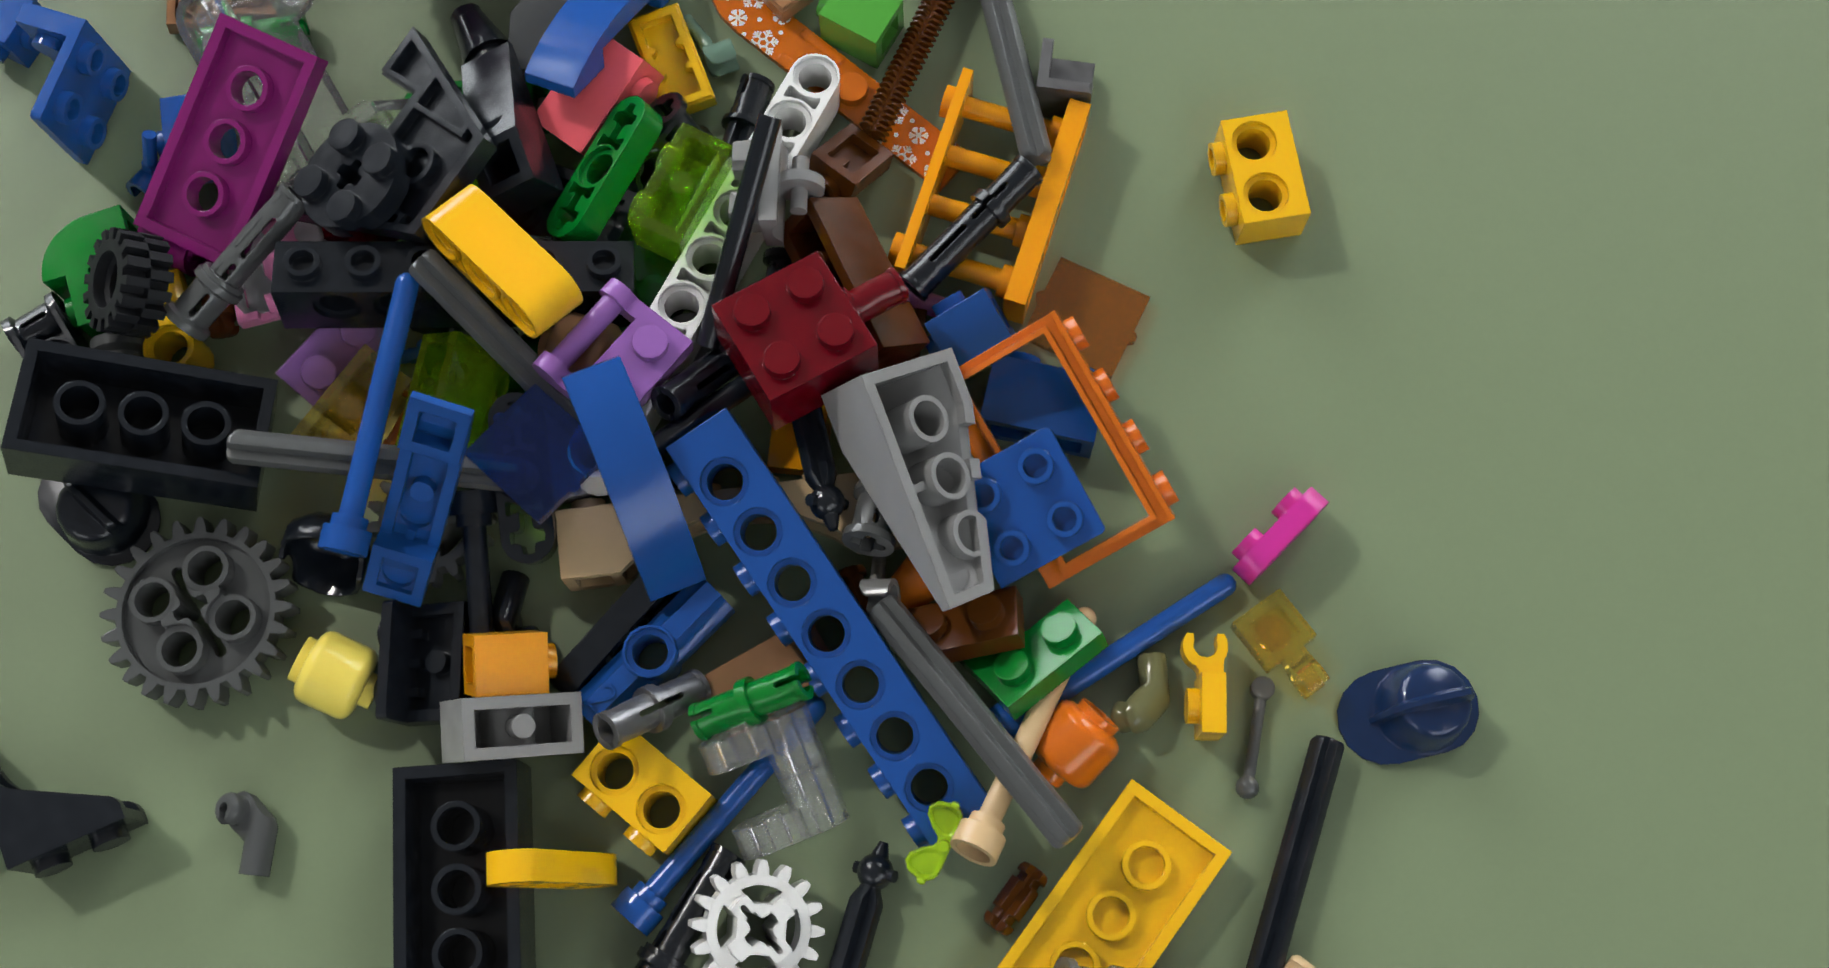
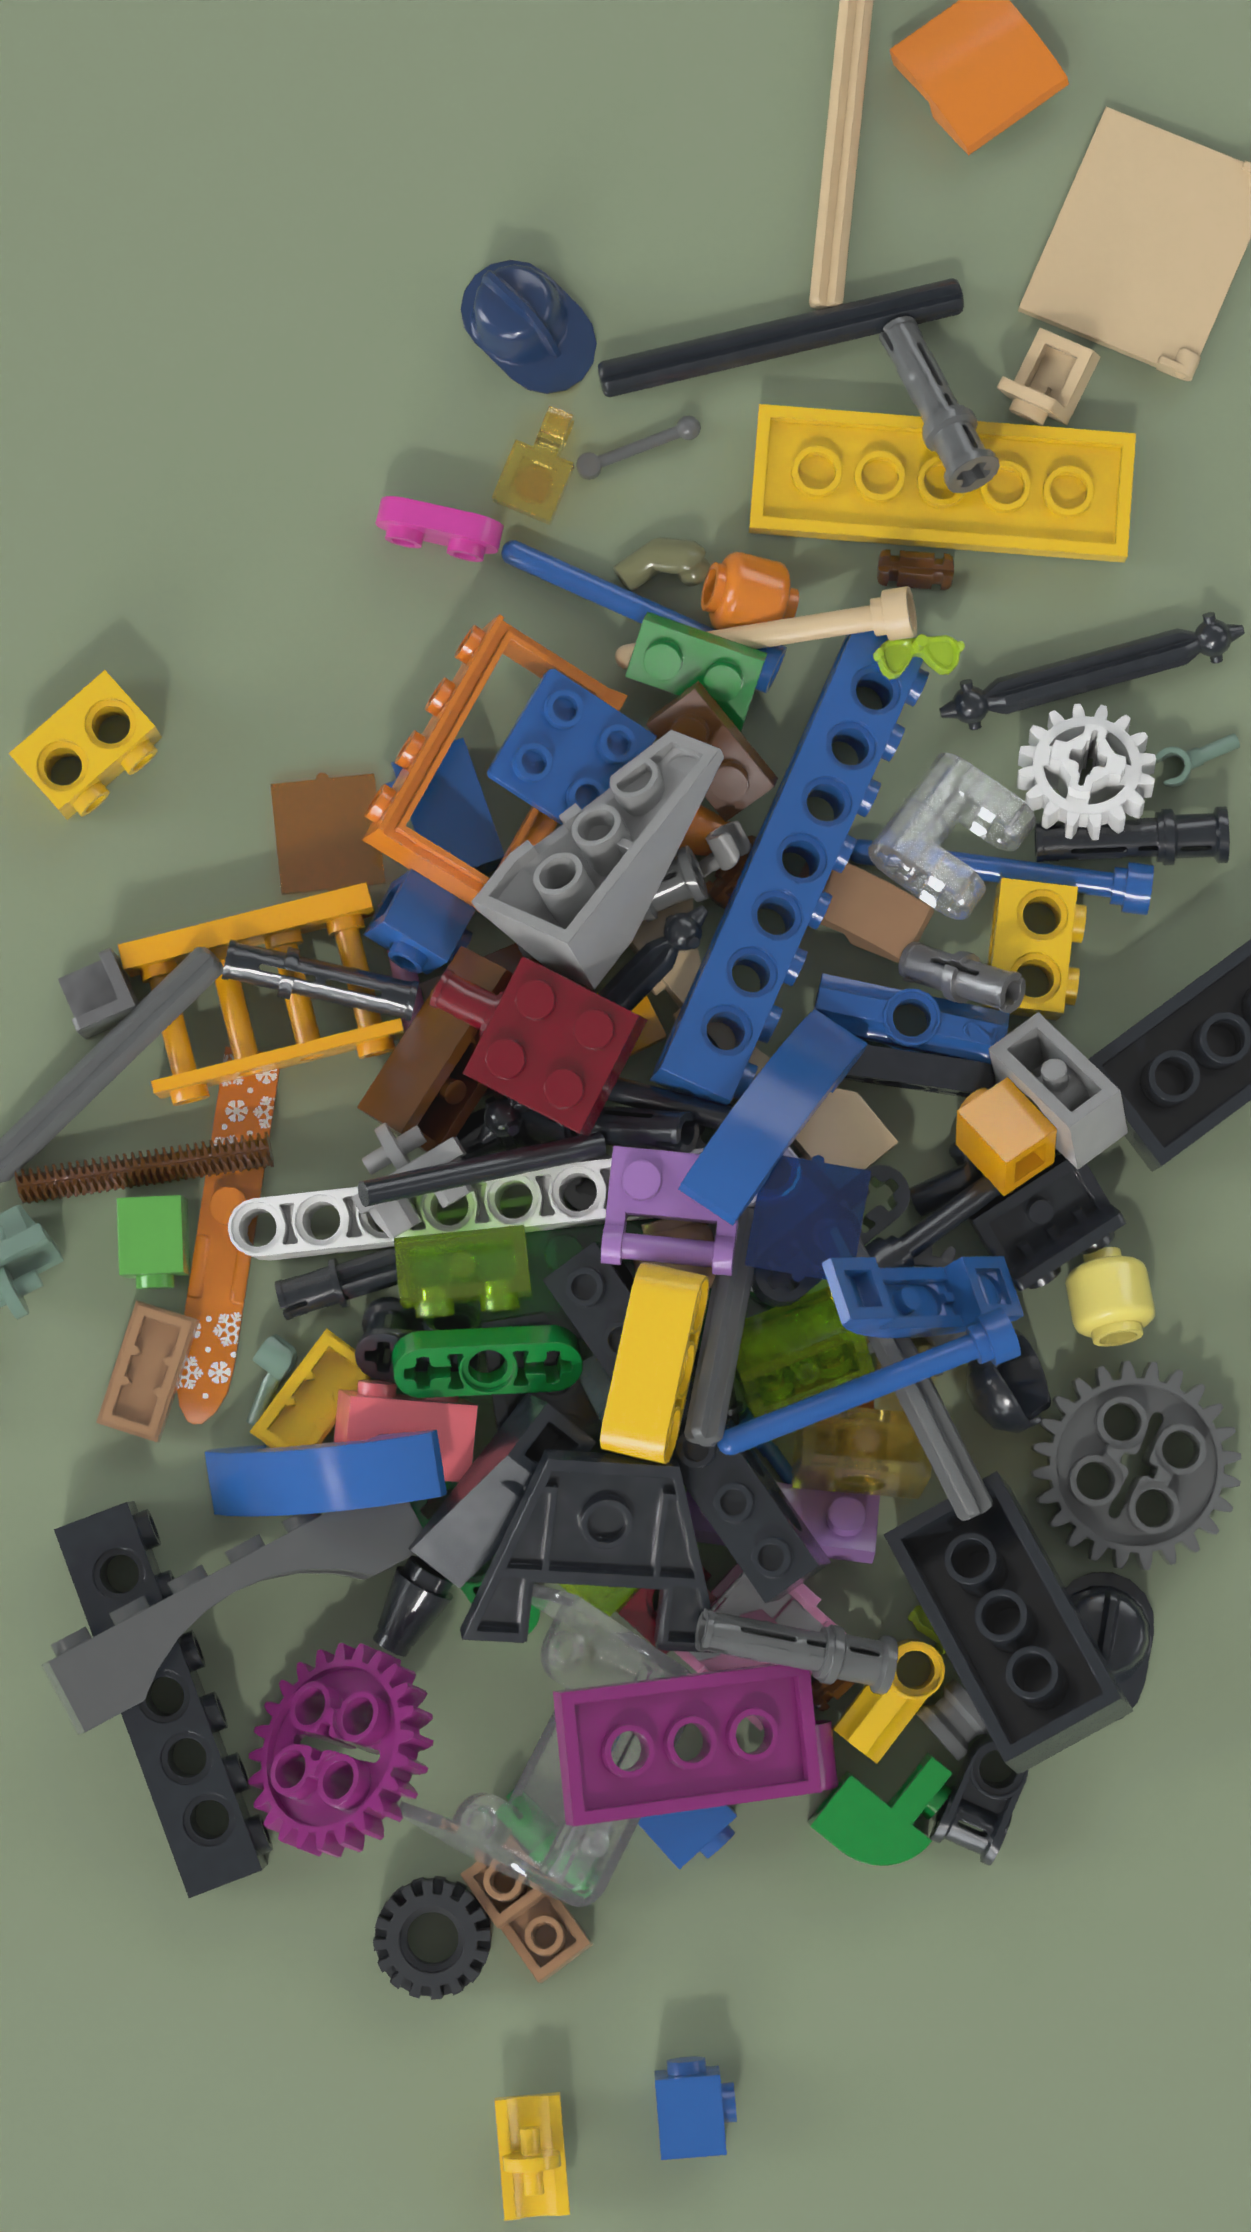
camera: 125 degrees left, 10 degrees up
(81, 83) = (693, 1956): blue bracket -> none
(128, 283) = (874, 1714): black tyre -> none
(141, 180) = (756, 1838): blue hand -> none
(327, 179) = (665, 1609): black plate -> none
(550, 869) = (1156, 966): yellow beam -> none
(751, 701) = (901, 890): green pin -> none
(850, 162) = (321, 1151): reddish brown bracket -> none
(976, 722) = (795, 681): dark grey axle -> none
(1207, 701) = (636, 502): yellow plate -> none

